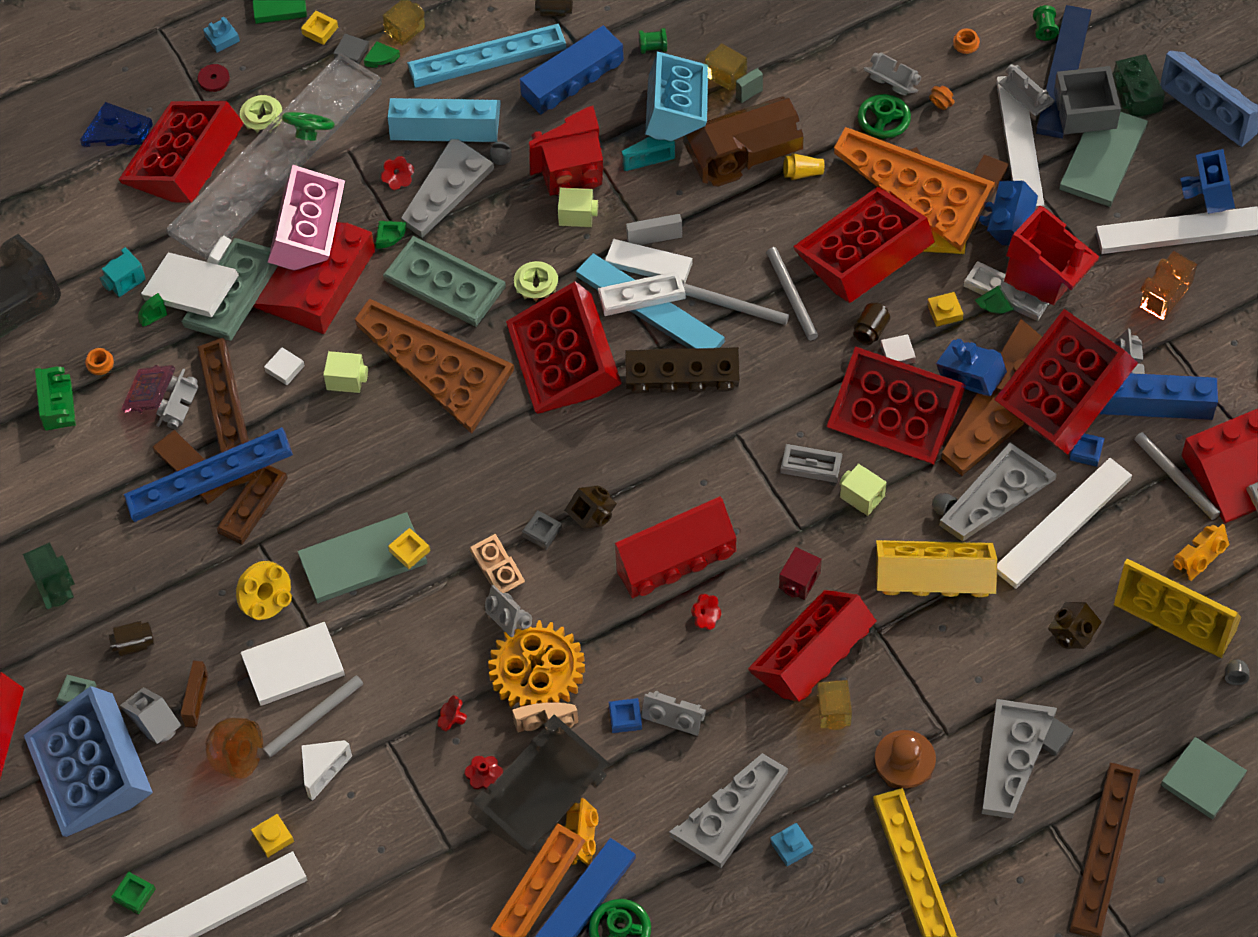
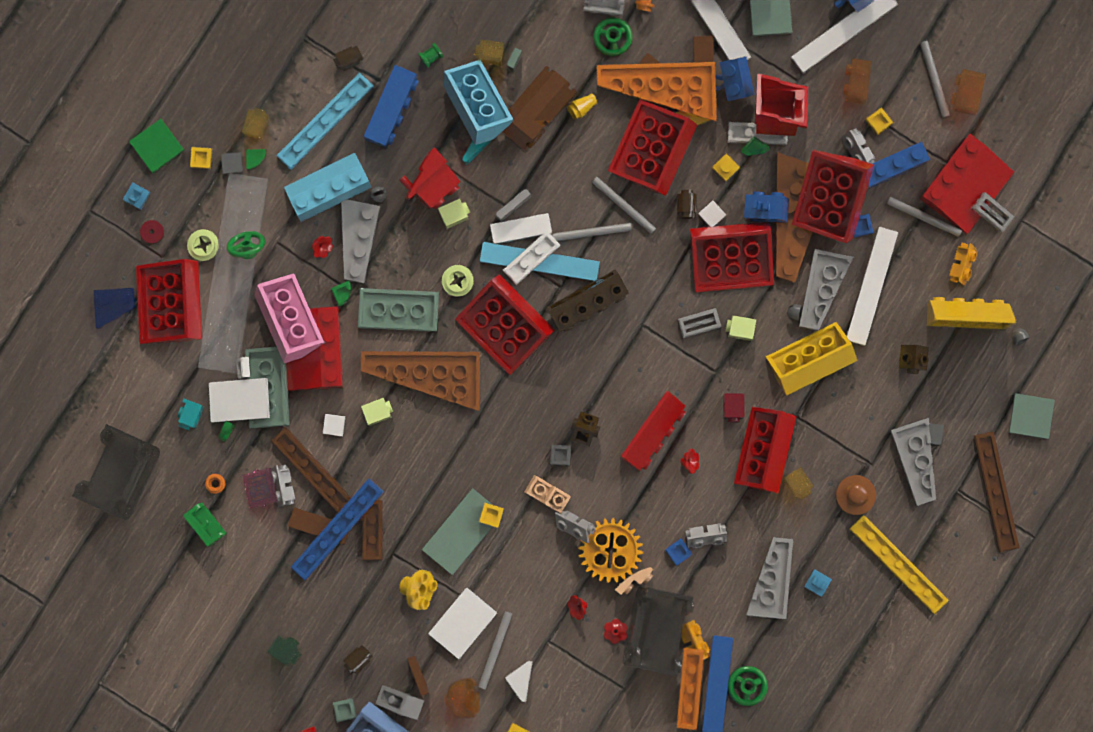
camera: 30 degrees left, 25 degrees up
(1173, 345) = (879, 121): none -> yellow tile

